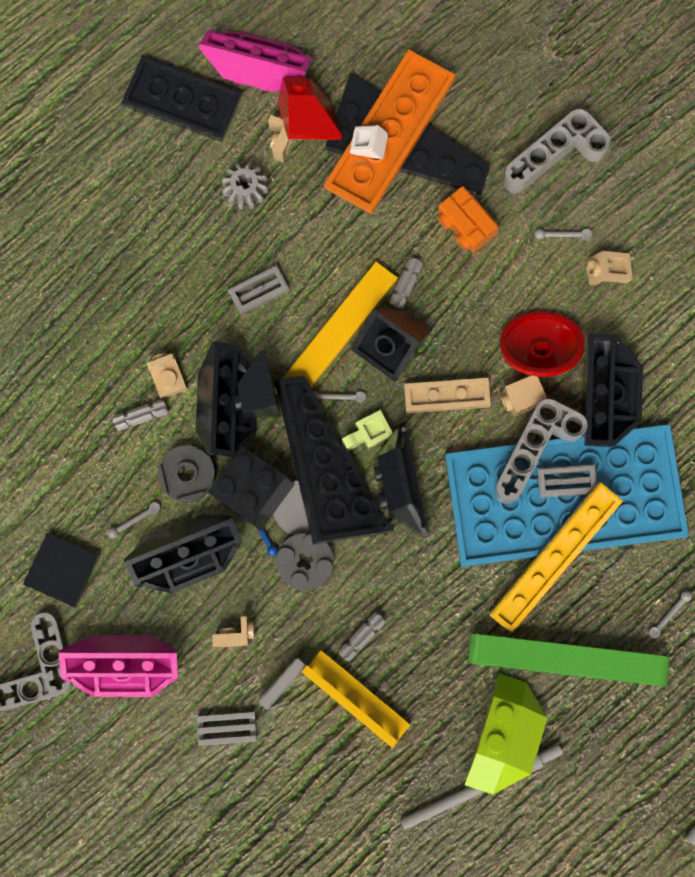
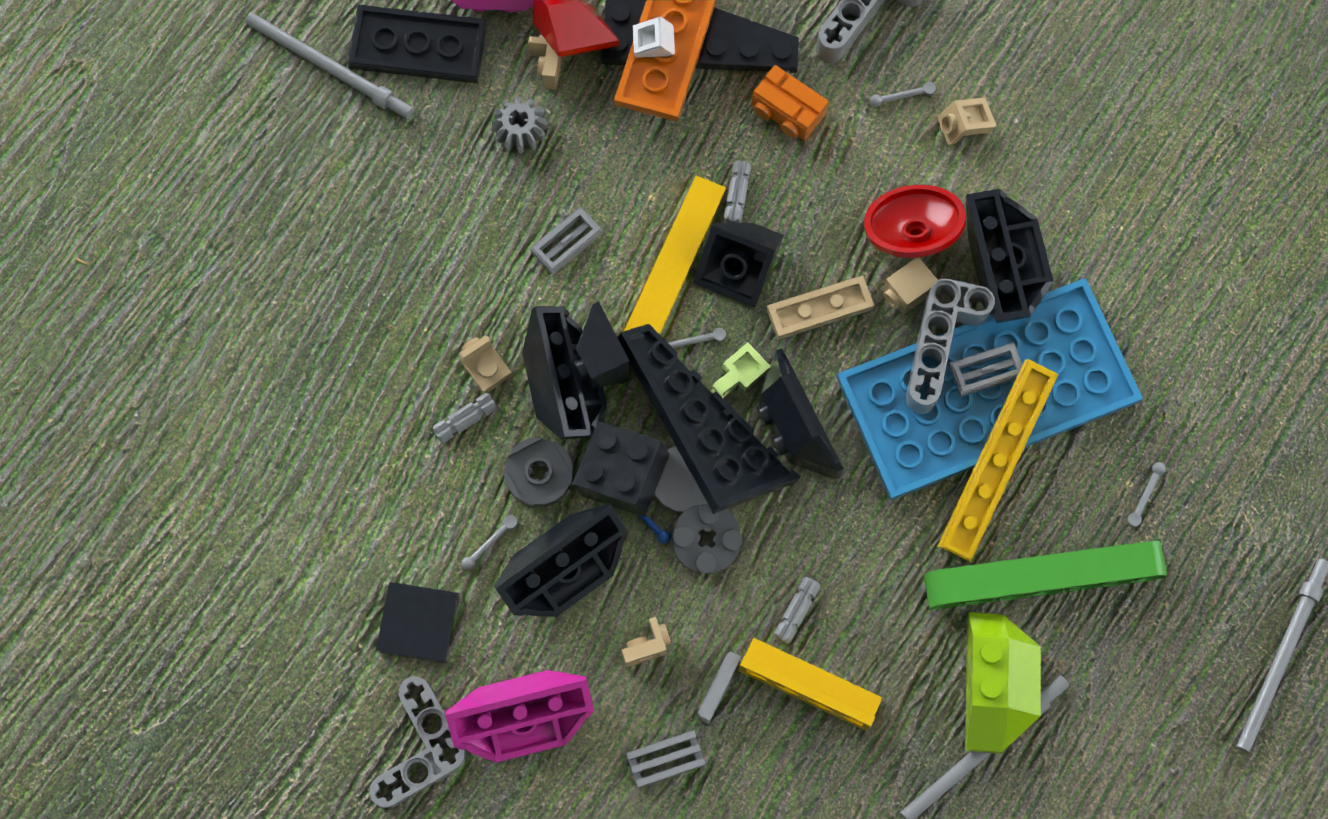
camera: 20 degrees left, 5 degrees down
(141, 135) = (380, 95): none -> light grey bar

